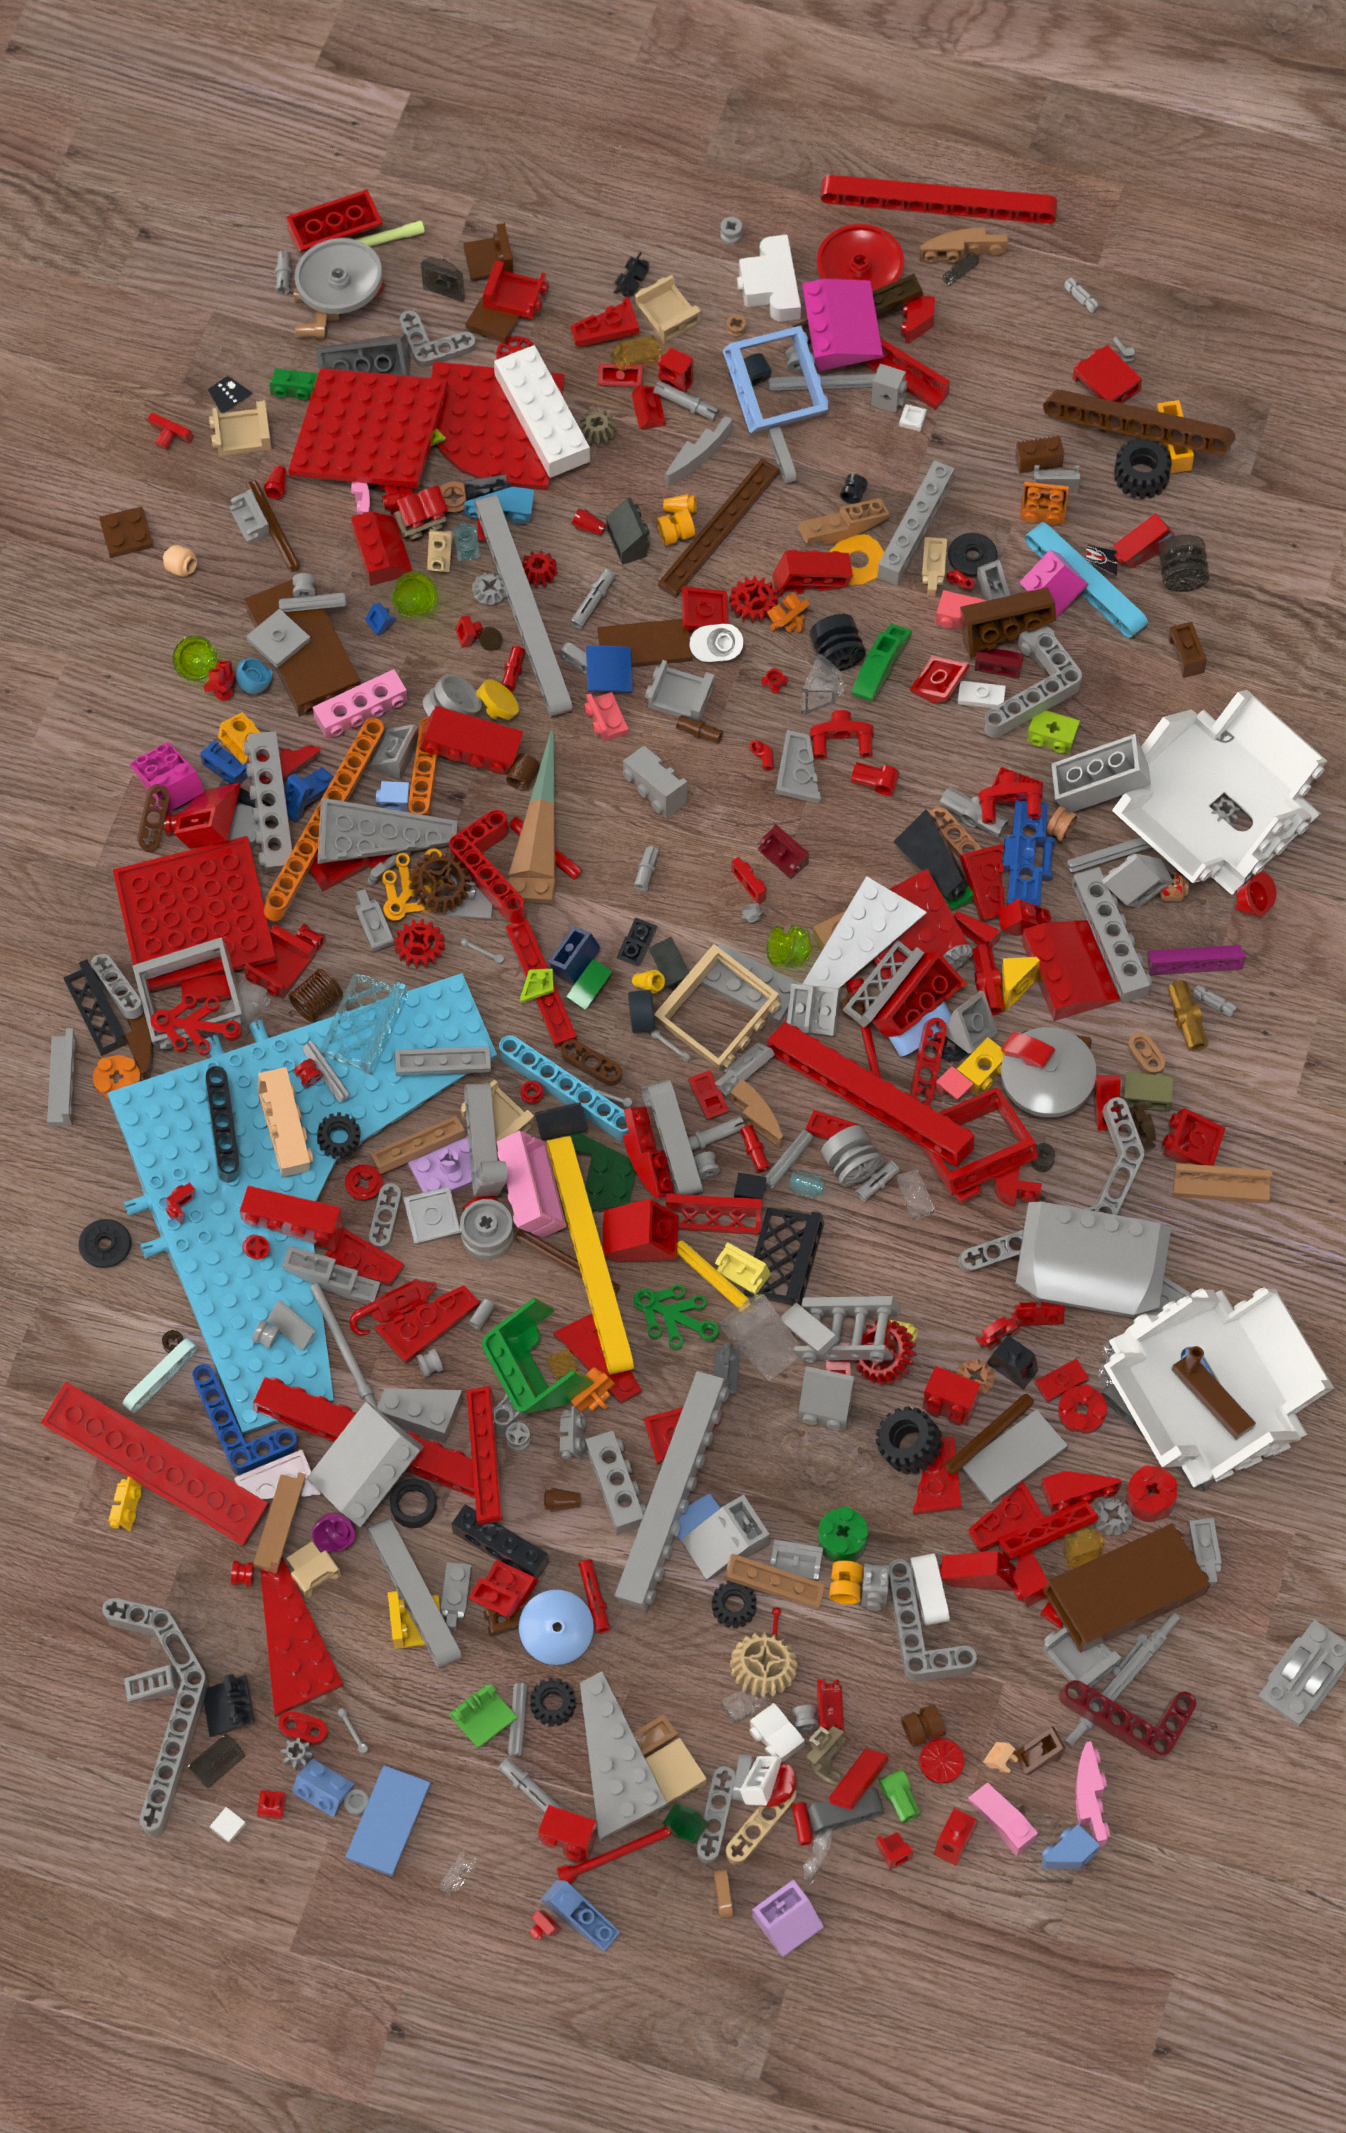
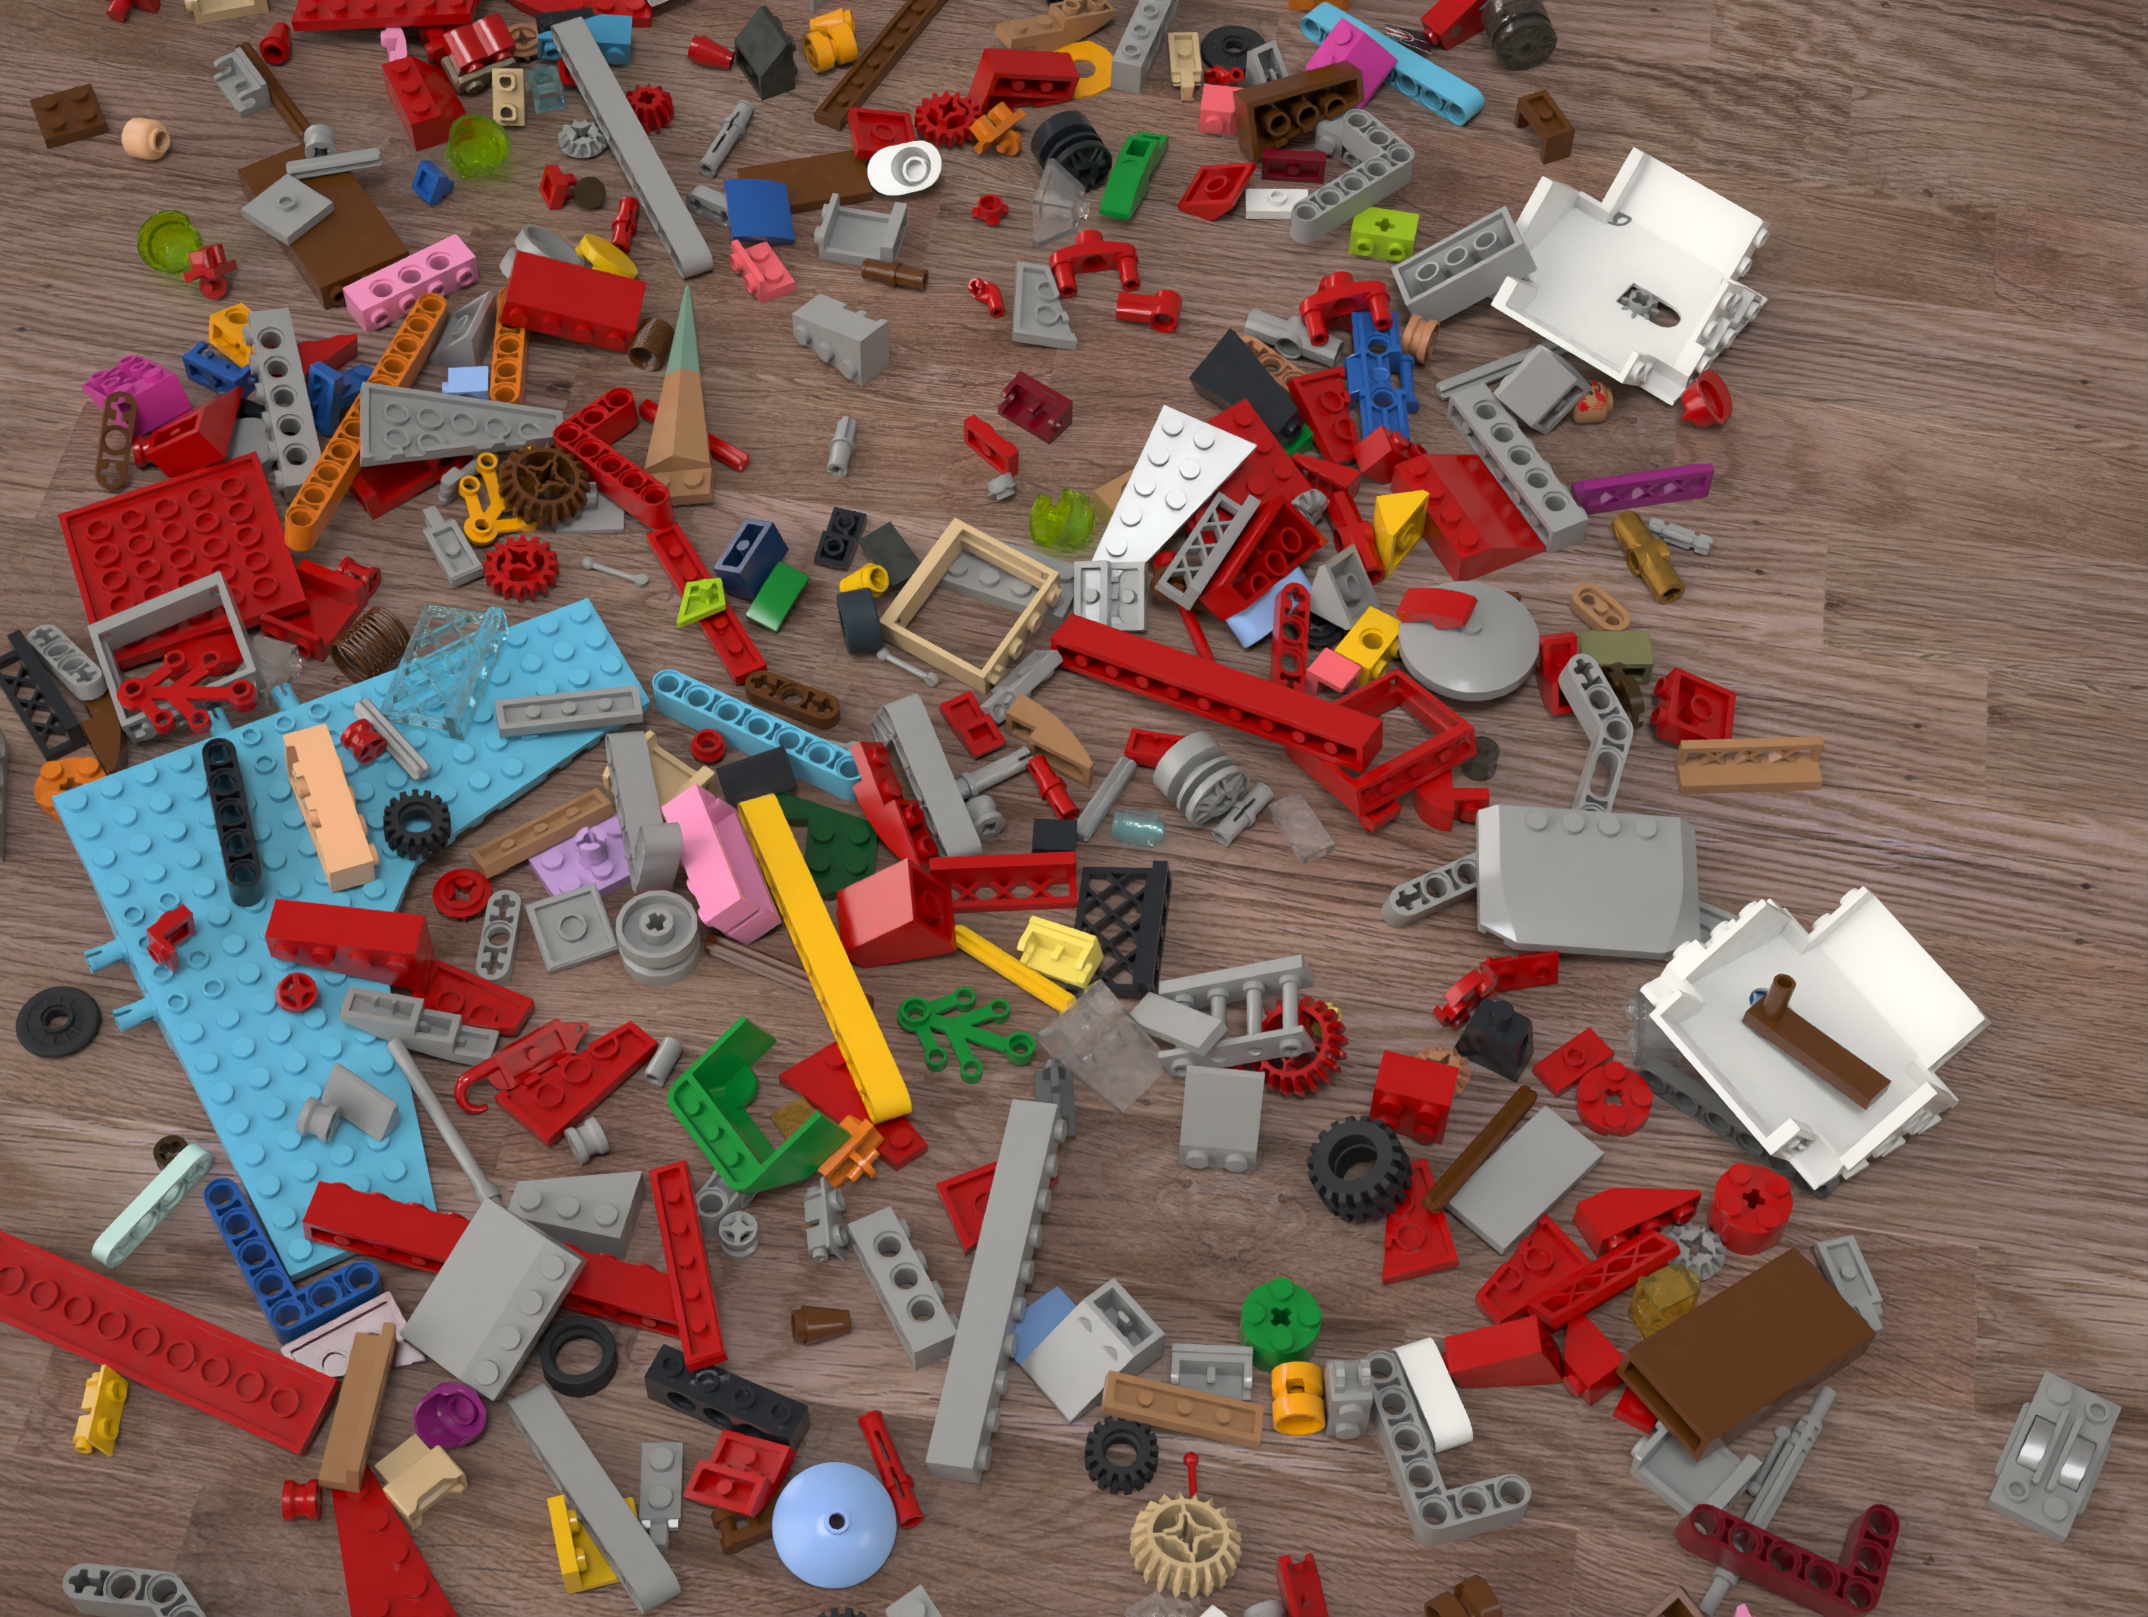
camera: 10 degrees left, 10 degrees down
(253, 676) = (255, 263): dark azure hair -> none

